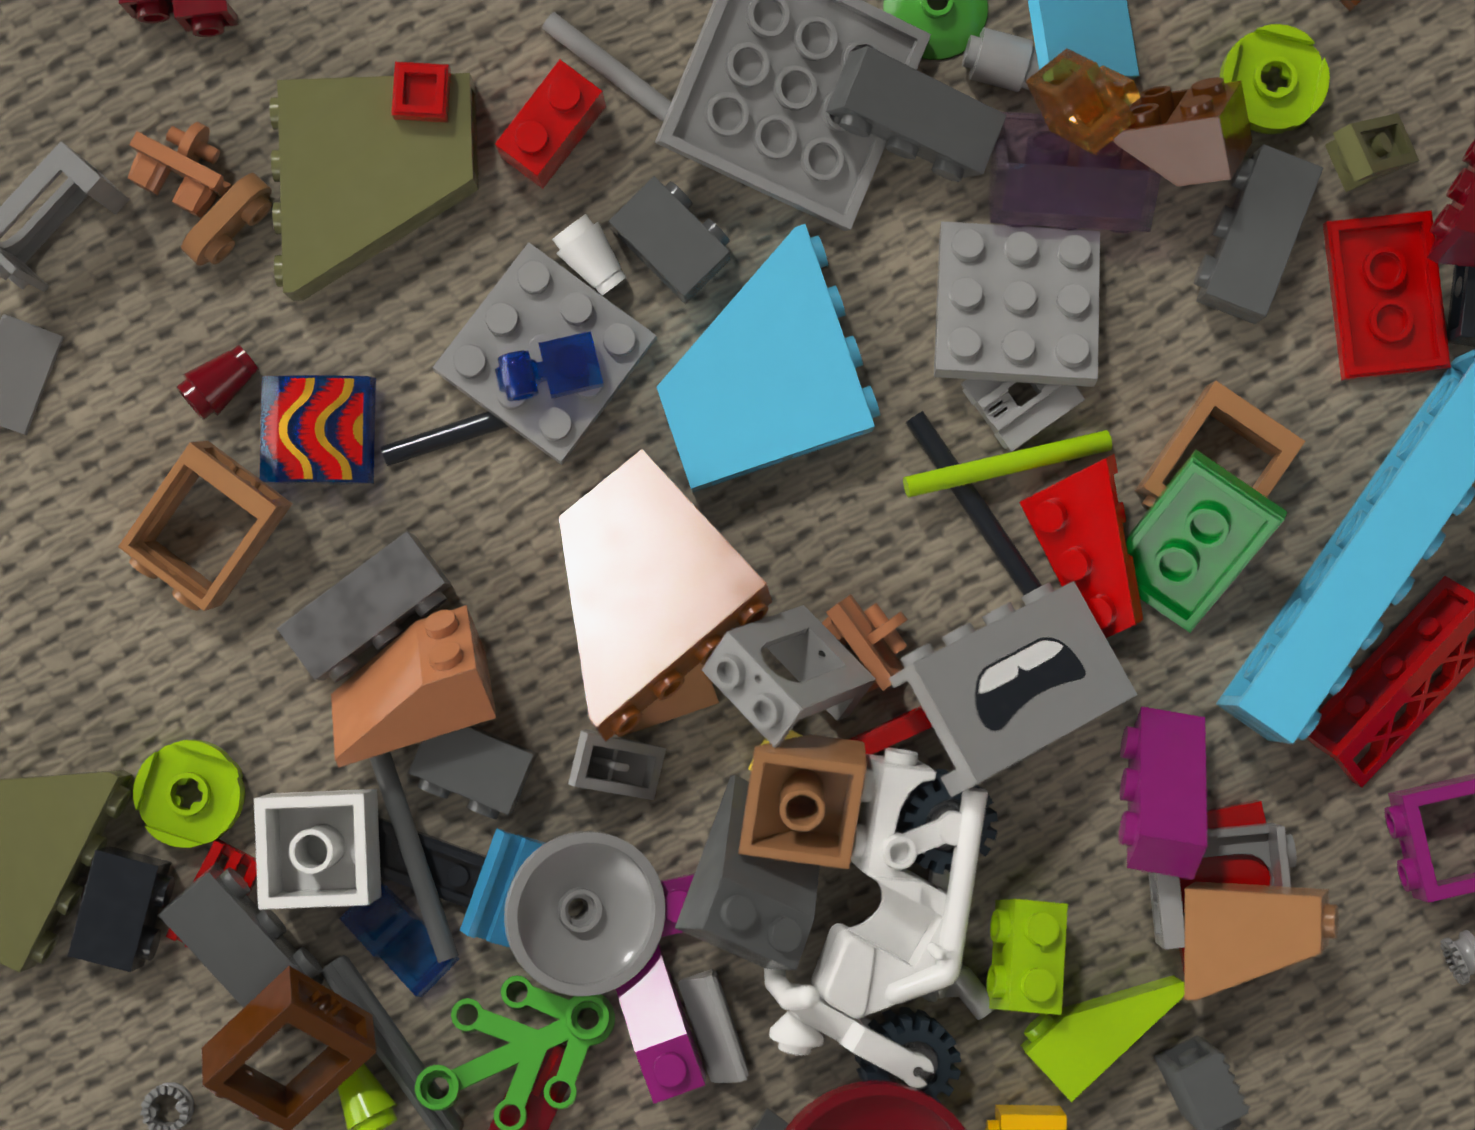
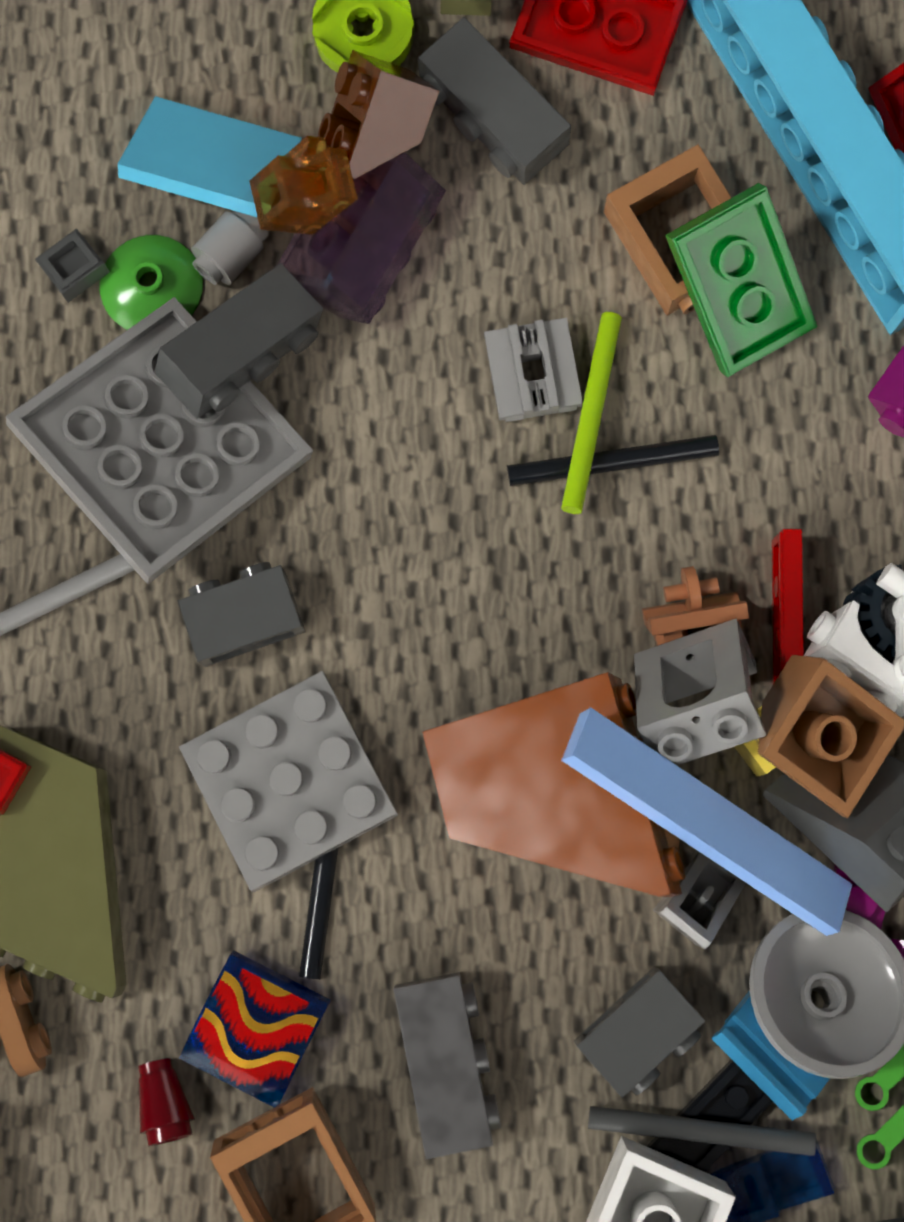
camera: 65 degrees left, 5 degrees down
(414, 689) = (546, 1055): nougat slope -> none
(551, 124) = (81, 673): red brick -> none
(566, 365) = (311, 764): clear blue plate -> none
(589, 254) = (218, 695): white cone -> none
(676, 733) = (707, 821): none -> light blue tile
(769, 373) = (408, 585): medium azure slope -> none
(1015, 682) = (801, 494): light grey panel -> none
(1017, 304) = (453, 336): light grey plate -> none
(1086, 543) = (700, 377): red wing -> none

